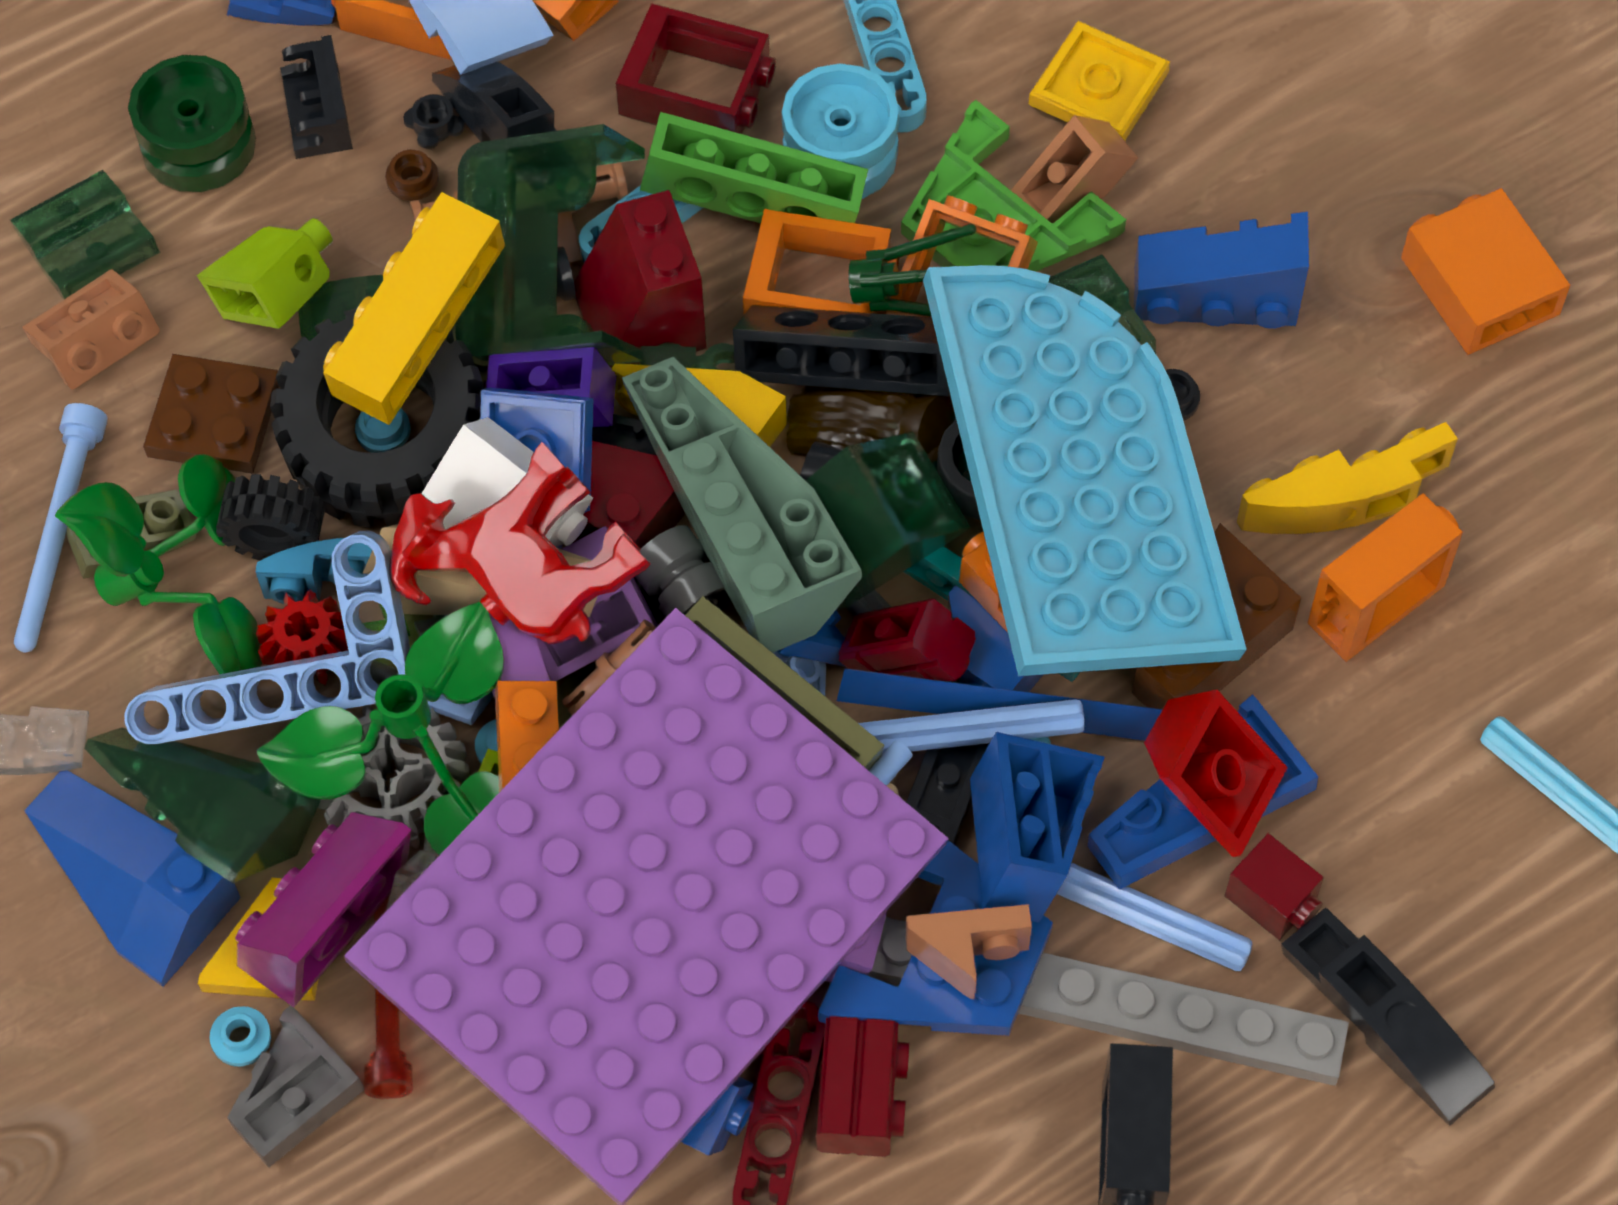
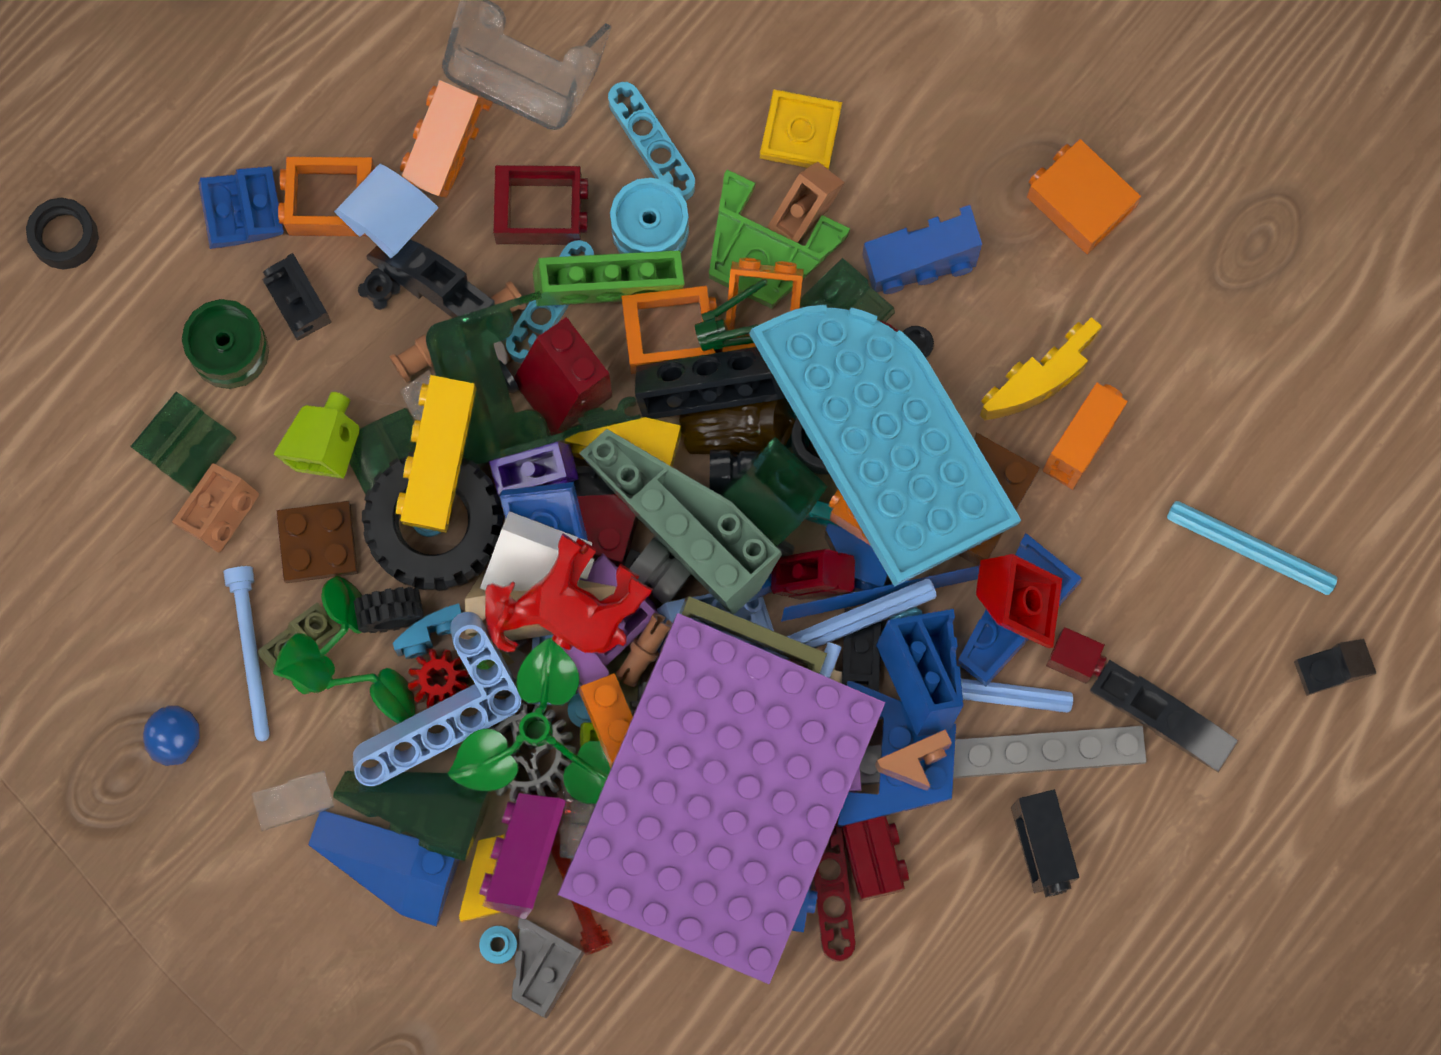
camera: 20 degrees left, 15 degrees up
(410, 164) = (376, 324): reddish brown plate -> none

